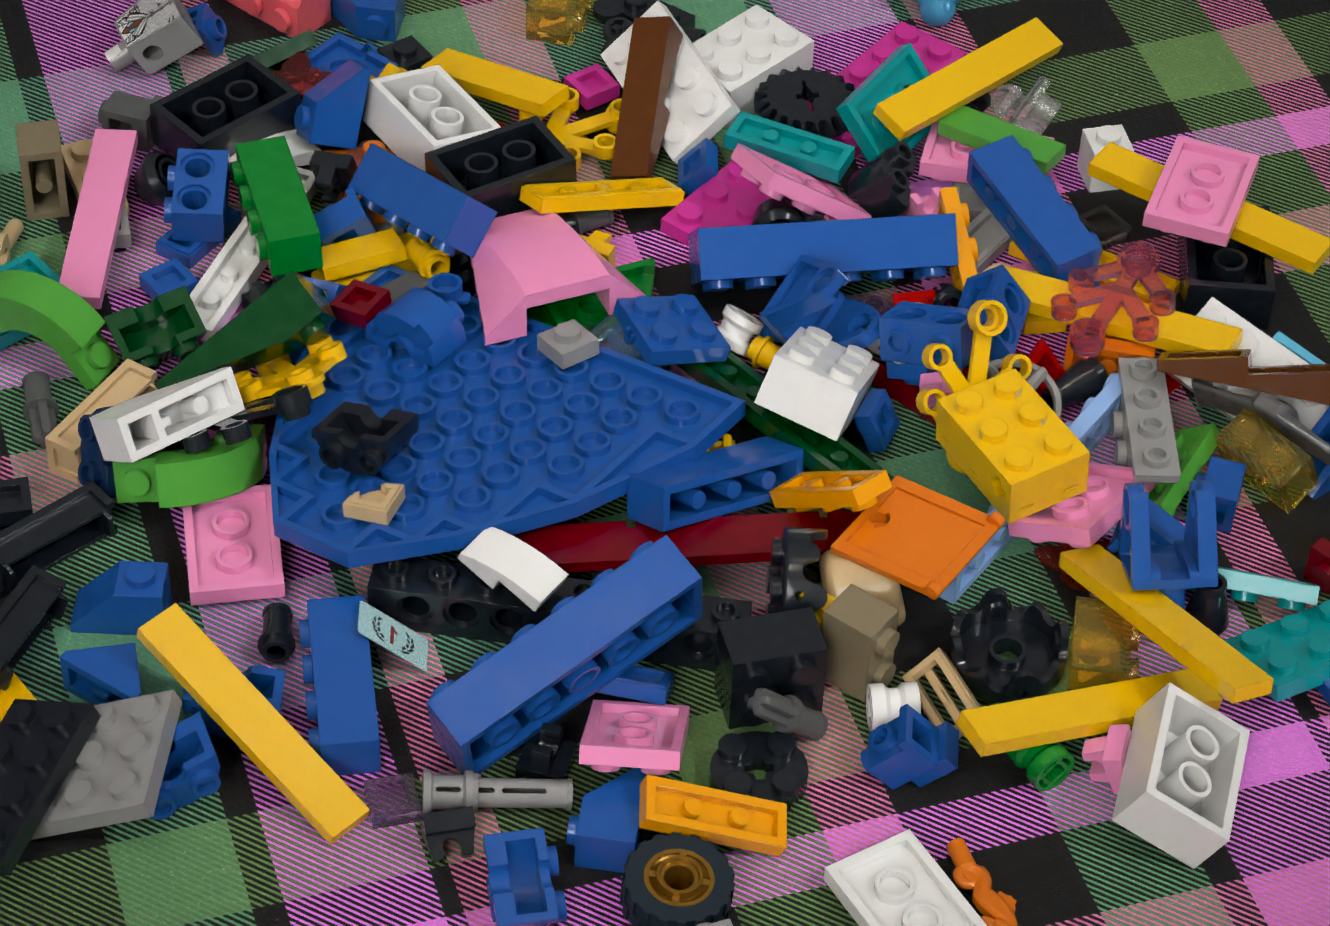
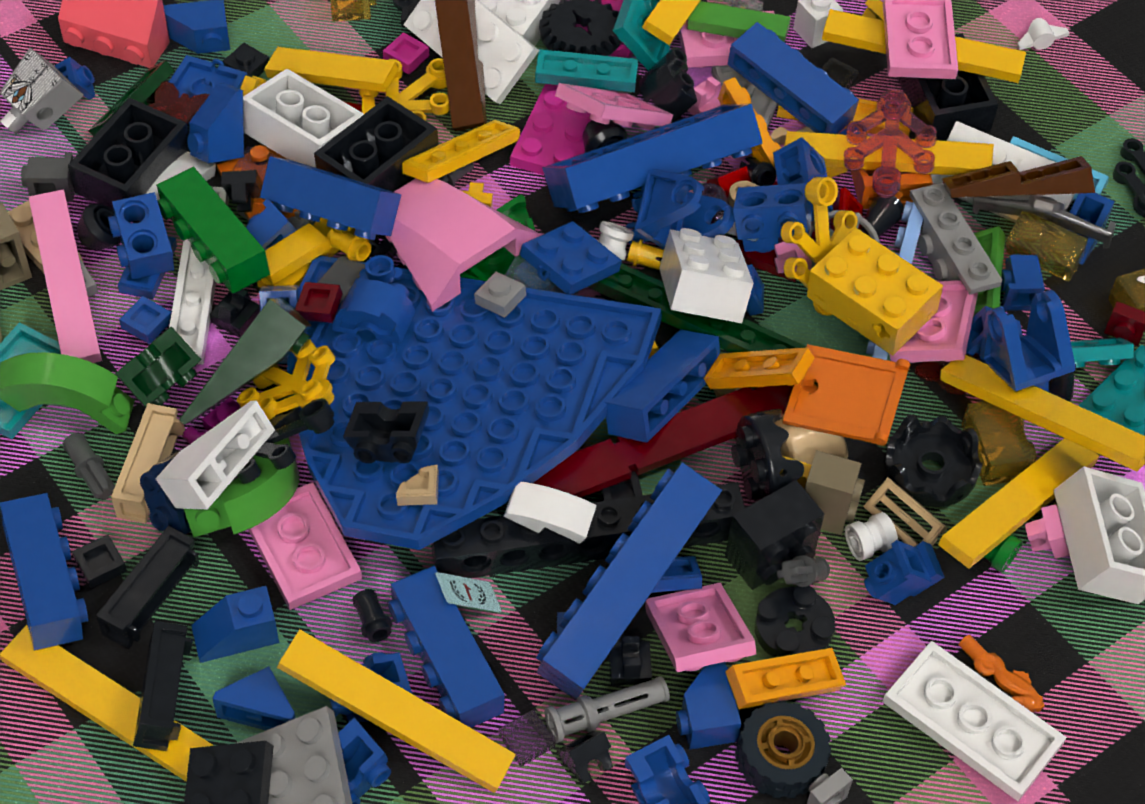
camera: 20 degrees left, 10 degrees up
(698, 166) = (519, 103): blue plate -> none

